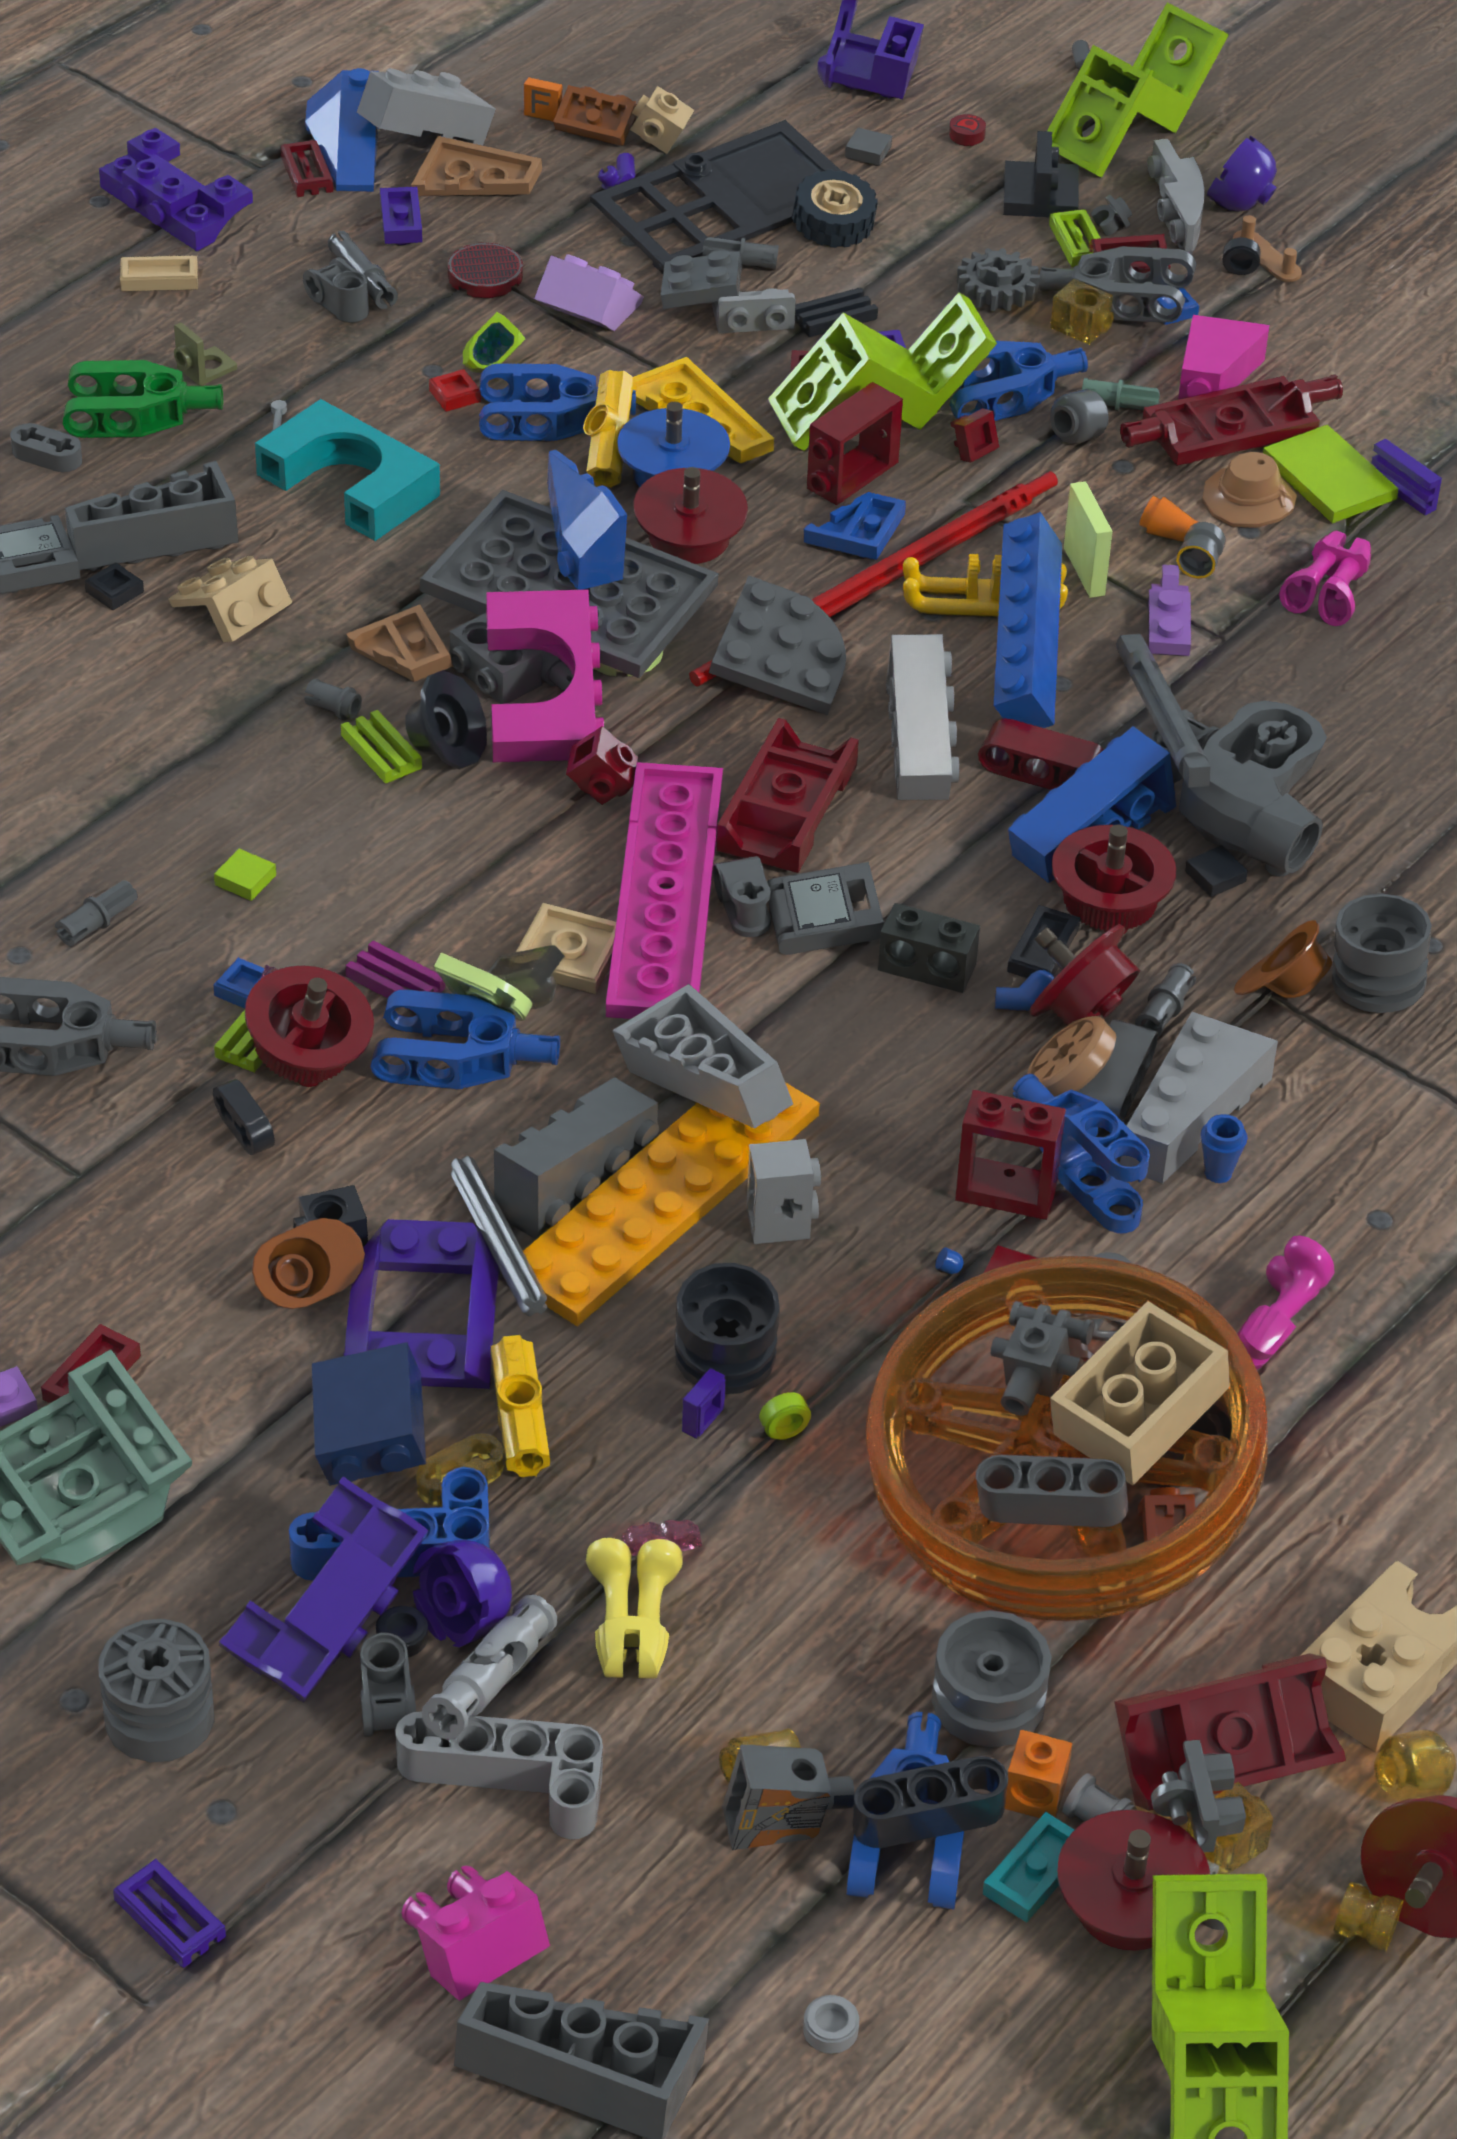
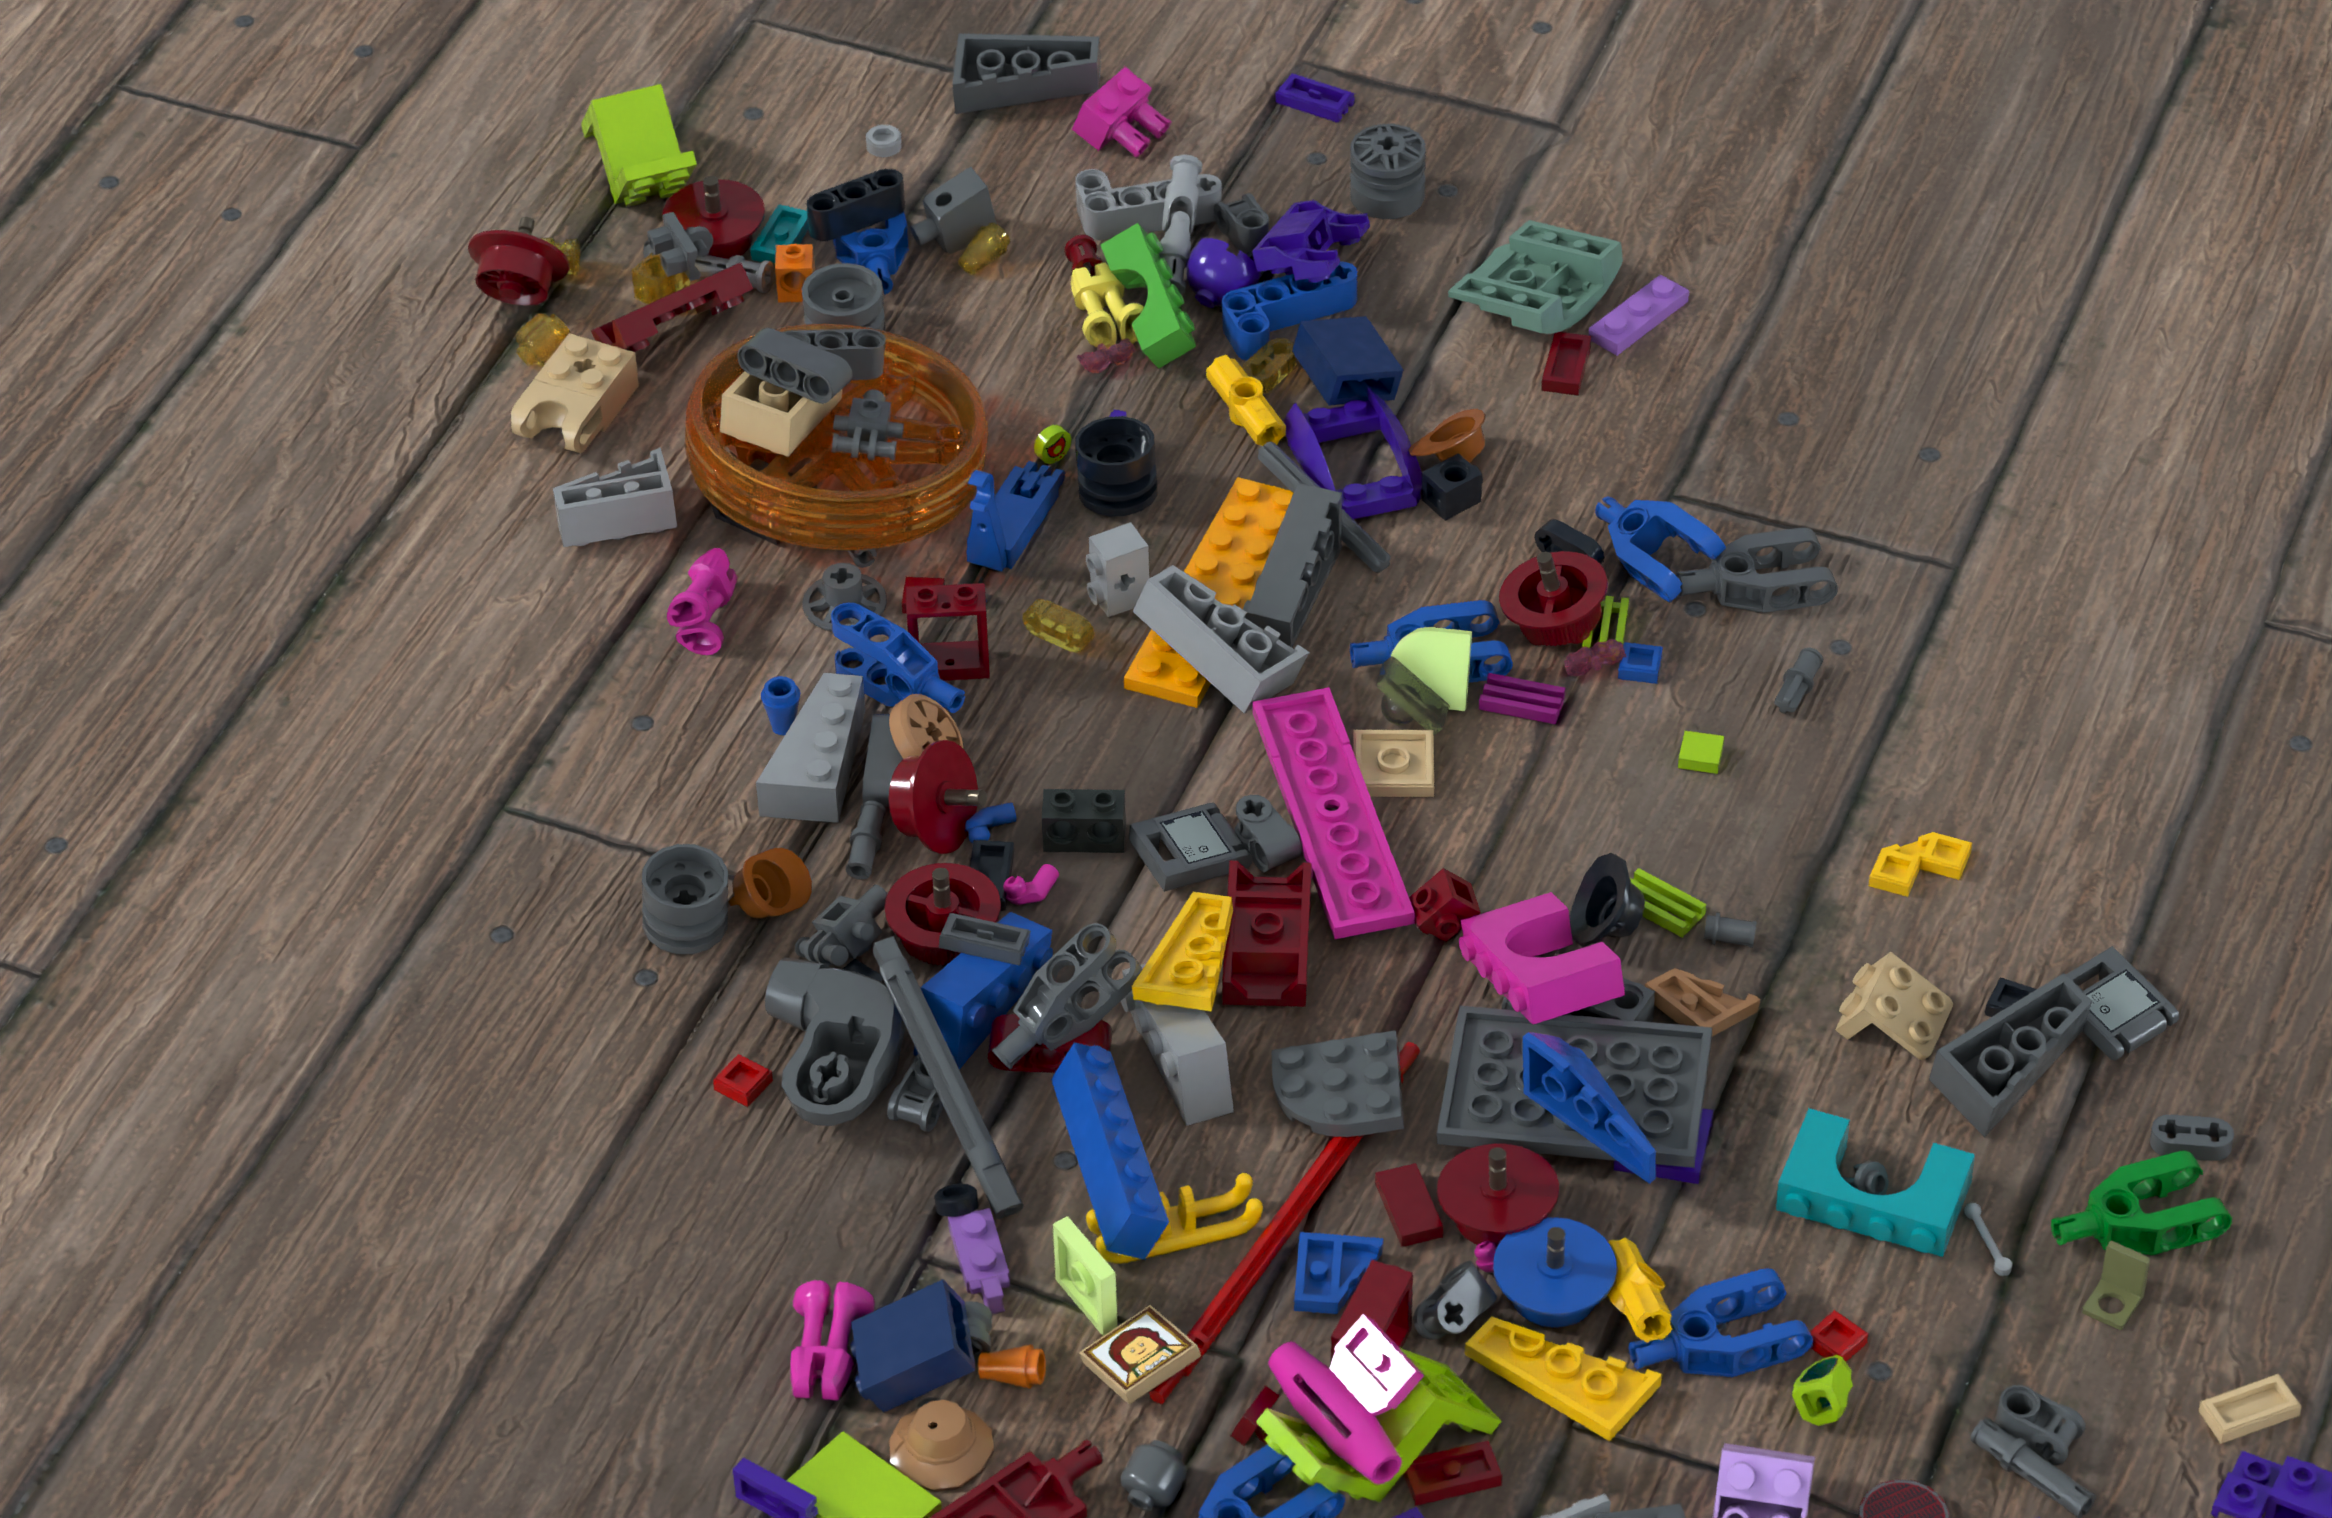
camera: 165 degrees right, 0 degrees up
(123, 725) = (1933, 852): none -> yellow tile
(154, 1097) = (1643, 528): none -> blue piece
(351, 470) = (1870, 1178): none -> dark grey plate
(572, 1611) = (1162, 325): none -> bright green arch
(629, 1696) = (1074, 255): none -> dark red bush
(764, 557) = (1408, 1205): none -> dark red tile
(772, 462) = (1454, 1303): none -> dark grey piece
(854, 1349) = (1009, 519): none -> blue hinge
(870, 1179) = (1058, 625): none -> clear yellow beam
(892, 732) = (1189, 957): none -> yellow wing
(910, 343) = (1342, 1401): none -> dark pink plate
(1006, 912) = (1024, 892): none -> dark pink arm
(1046, 486) = (1140, 1354): none -> tile
(1047, 719) = (1053, 1010): none -> dark grey piece
(1082, 808) = (984, 939): none -> dark grey tile
(1125, 1355) = (794, 365): none -> dark grey beam
(1178, 655) = (956, 1200): none -> black tile
(1218, 896) = (844, 929): none -> dark grey piece
(1259, 526) = (912, 1346): none -> dark blue brick
(1354, 815) = (742, 1080): none -> red tile
(1361, 1463) = (617, 504): none -> light grey wedge

